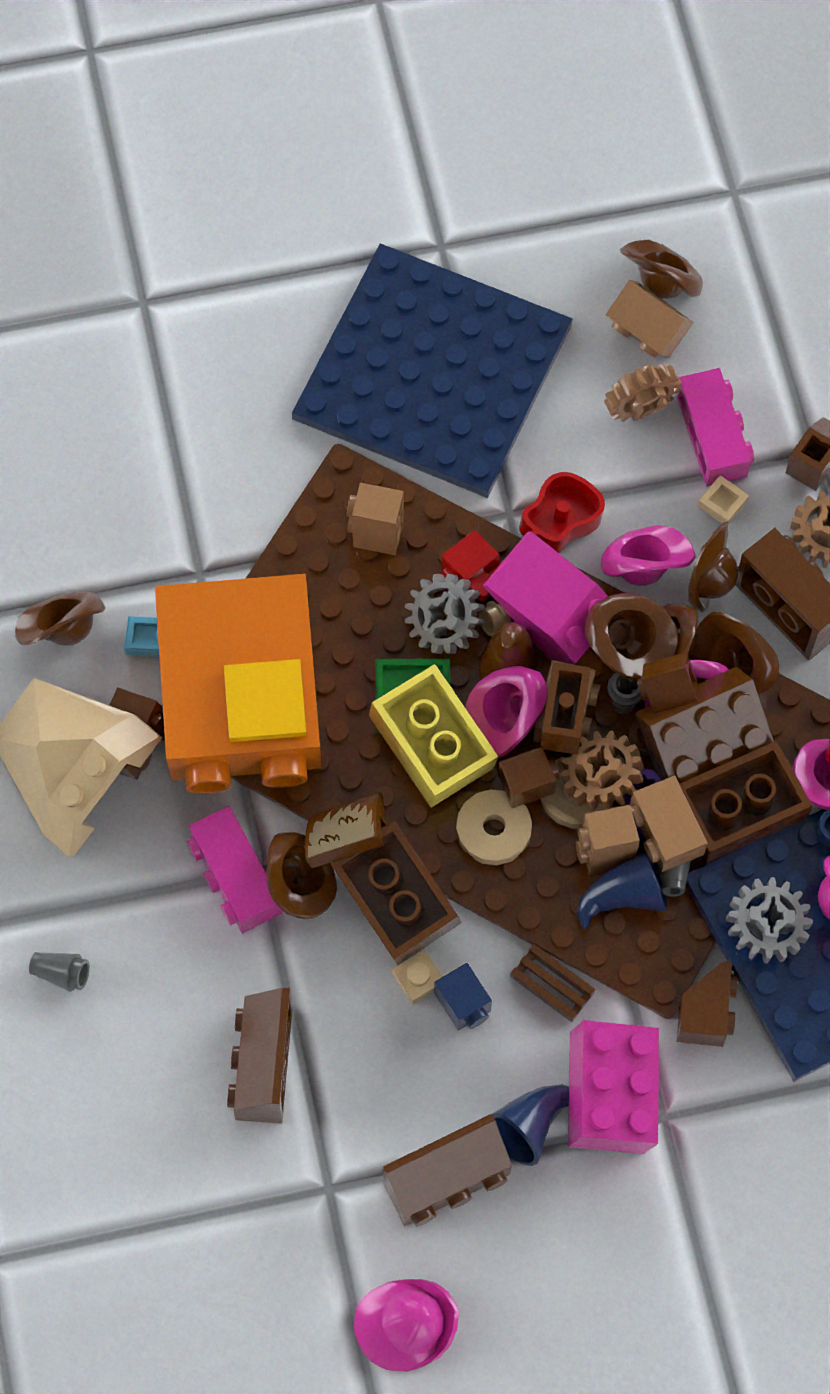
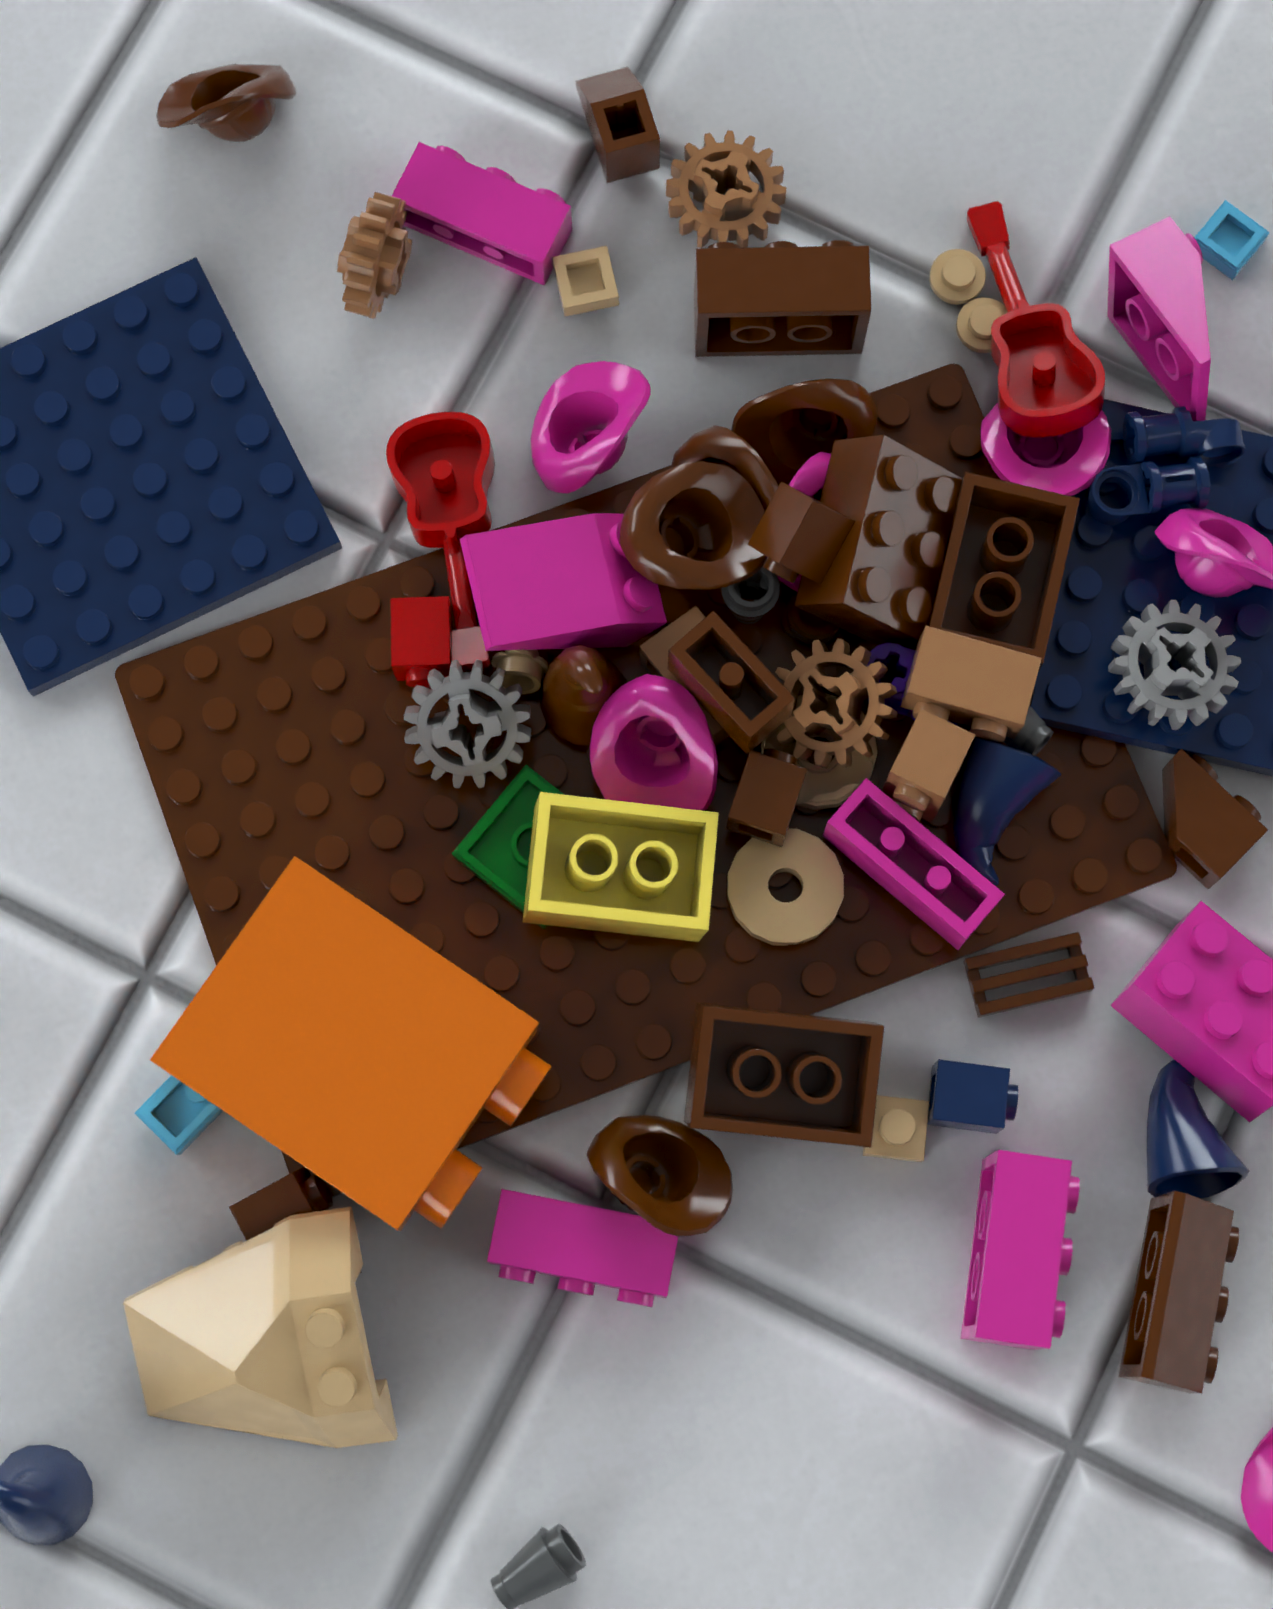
camera: 50 degrees left, 10 degrees up
(60, 619) = (63, 1204): reddish brown hat -> none
(261, 1056) = (860, 1407): reddish brown slope -> none
(265, 700) = (425, 1043): yellow tile -> none
(345, 830) = (656, 1073): slope -> none
(376, 518) = (274, 704): medium nougat brick -> none
(401, 1073) = (1019, 1250): none -> dark pink brick
(554, 873) = (912, 864): none -> dark pink brick
(648, 319) = (280, 171): medium nougat brick -> none
(713, 571) = (672, 360): reddish brown hat -> none

